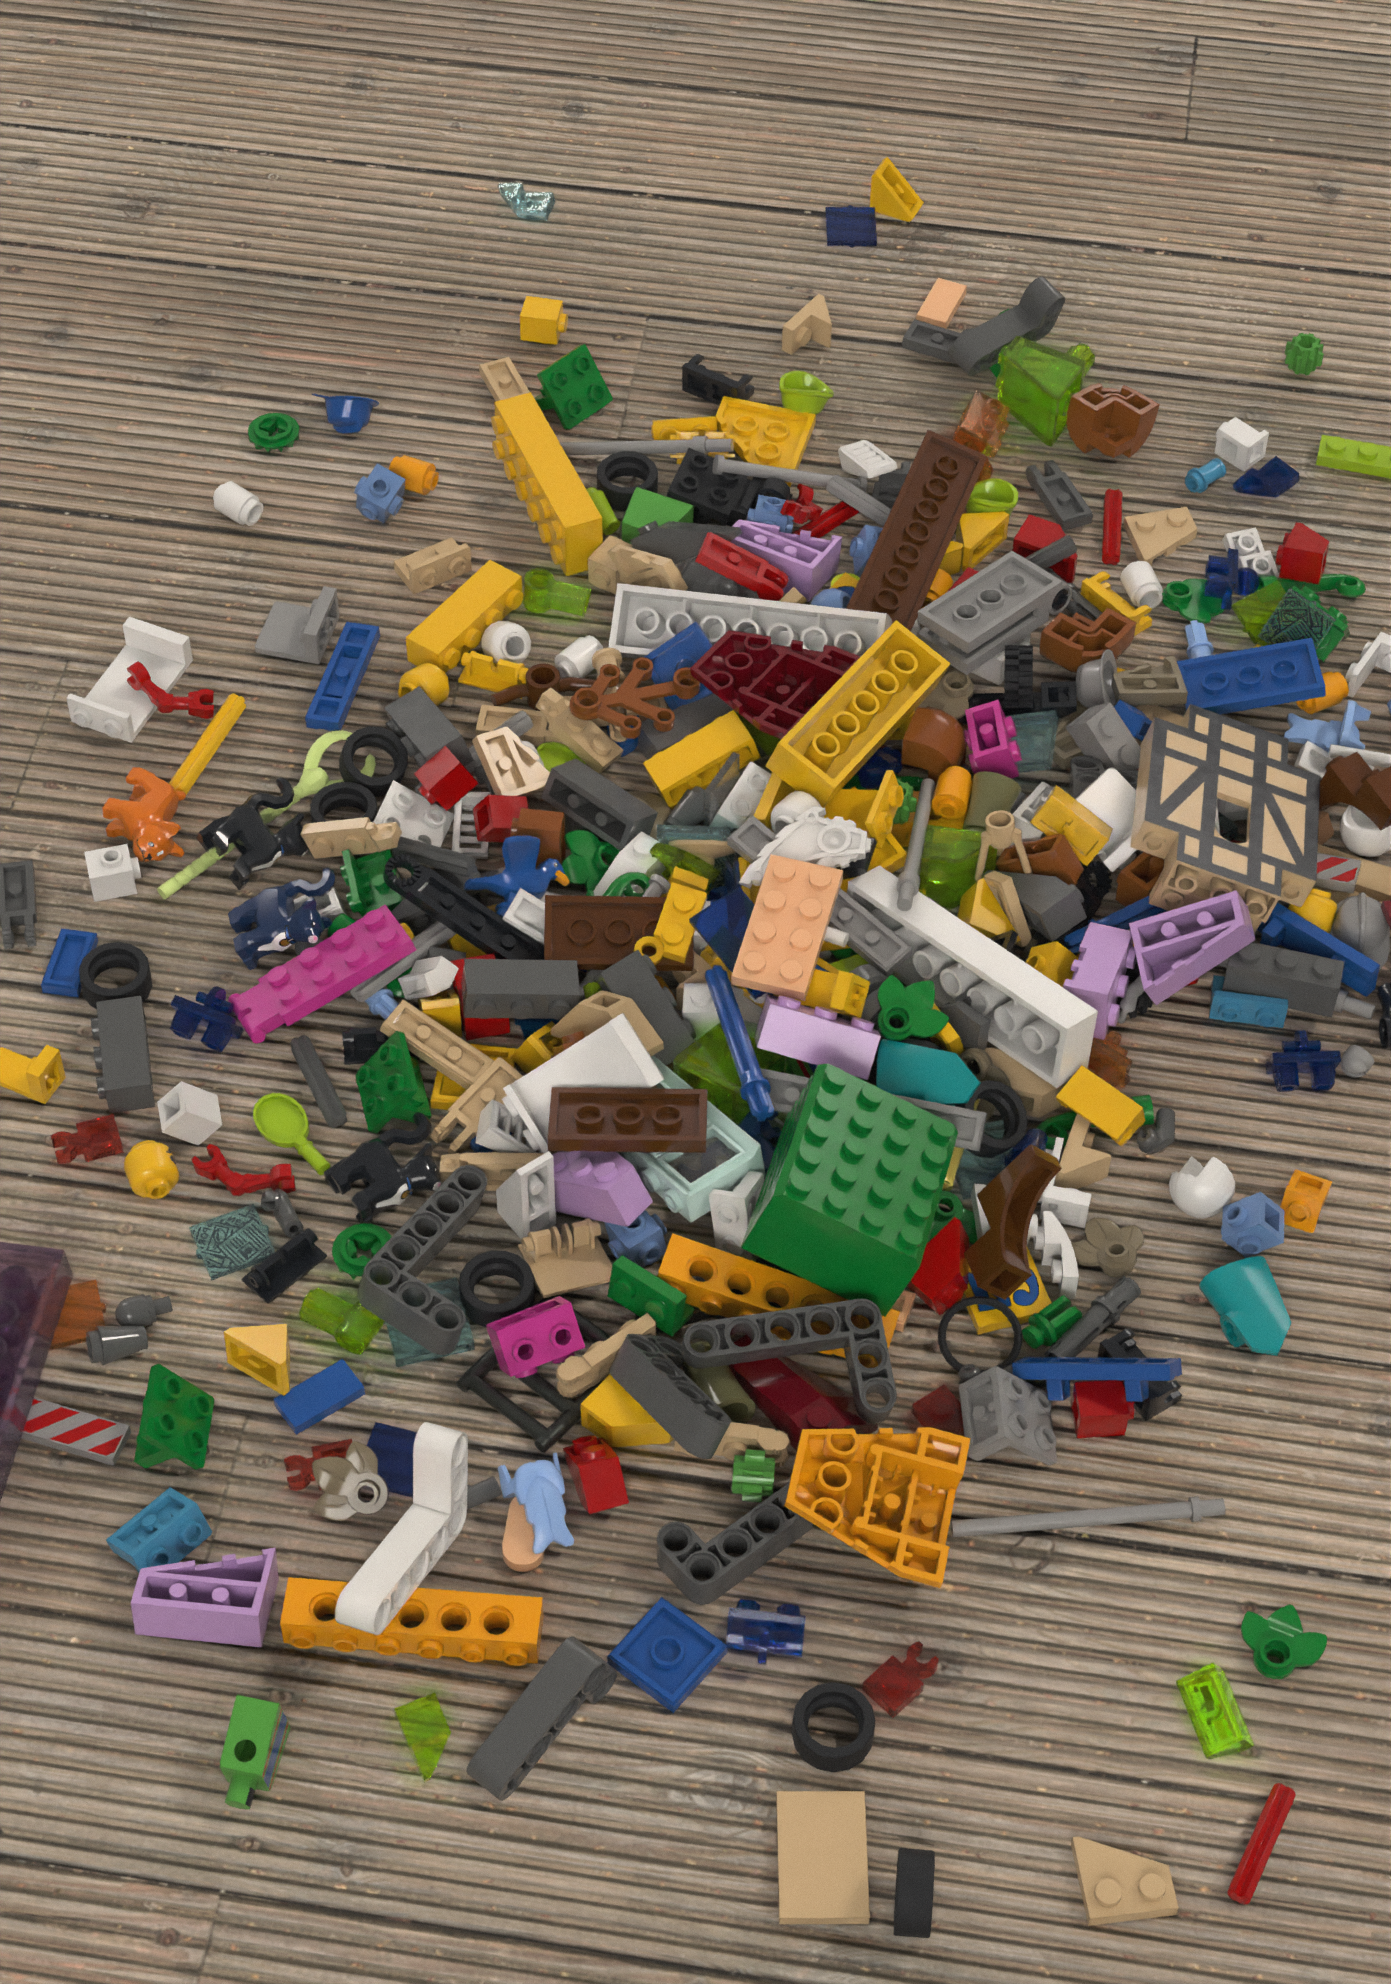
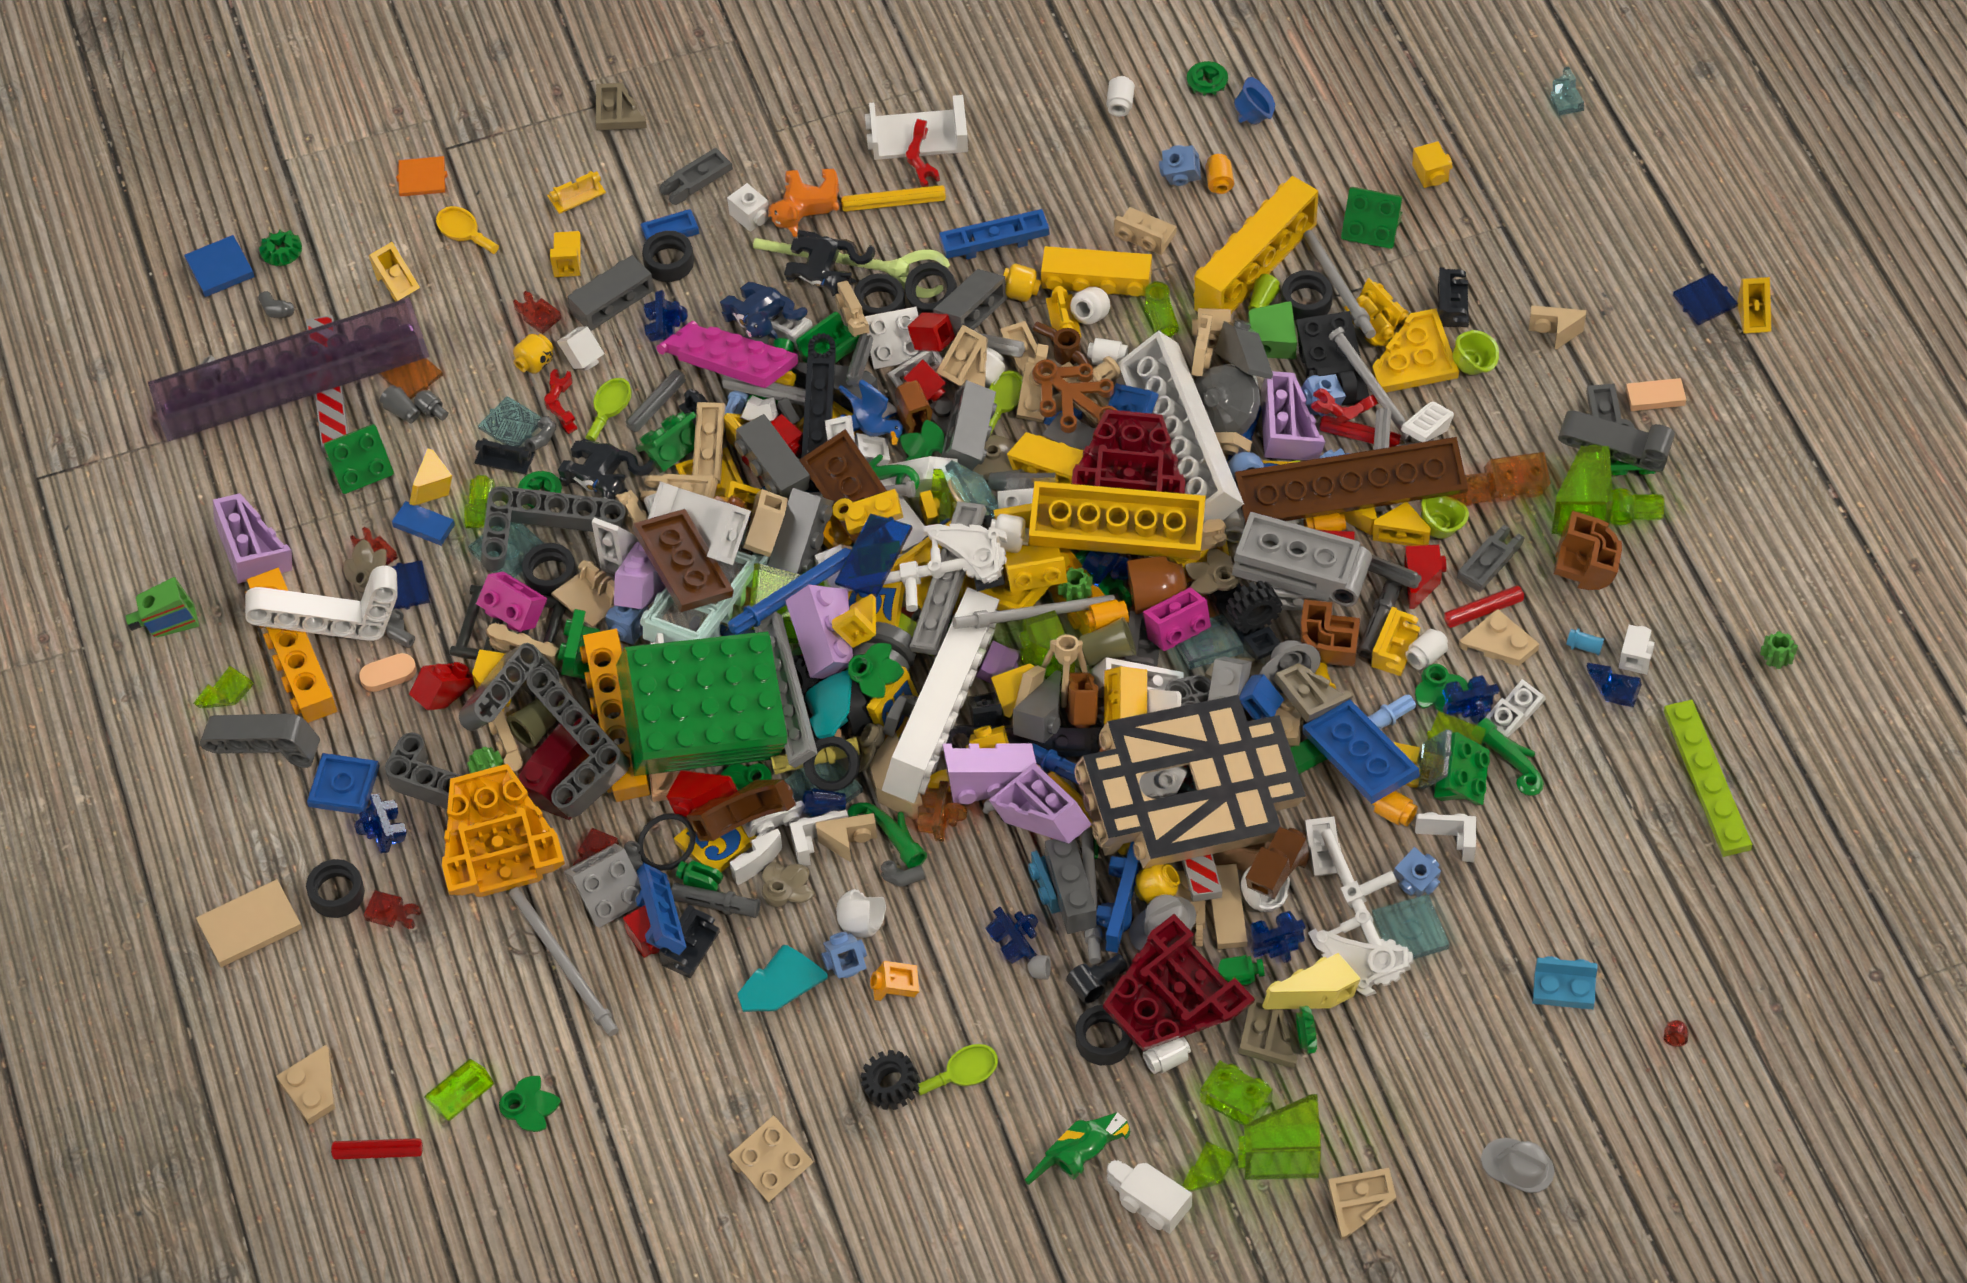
camera: 65 degrees right, 5 degrees up
(161, 1532) = (282, 497): dark azure bracket -> none
(299, 630) = (1027, 190): light grey bracket -> none
(502, 379) = (1355, 174): tan hinge -> none
(540, 1490) = (404, 659): light blue hair -> none
(742, 567) = (1229, 391): red hinge -> none
(787, 927) = (892, 567): light nougat plate -> none
(914, 1893) = (231, 961): black tyre -> none
(1102, 1105) = (886, 824): yellow hinge -> none
(1302, 555) = (1525, 734): red slope -> none
(1325, 733) = (1355, 832): light blue hair -> none

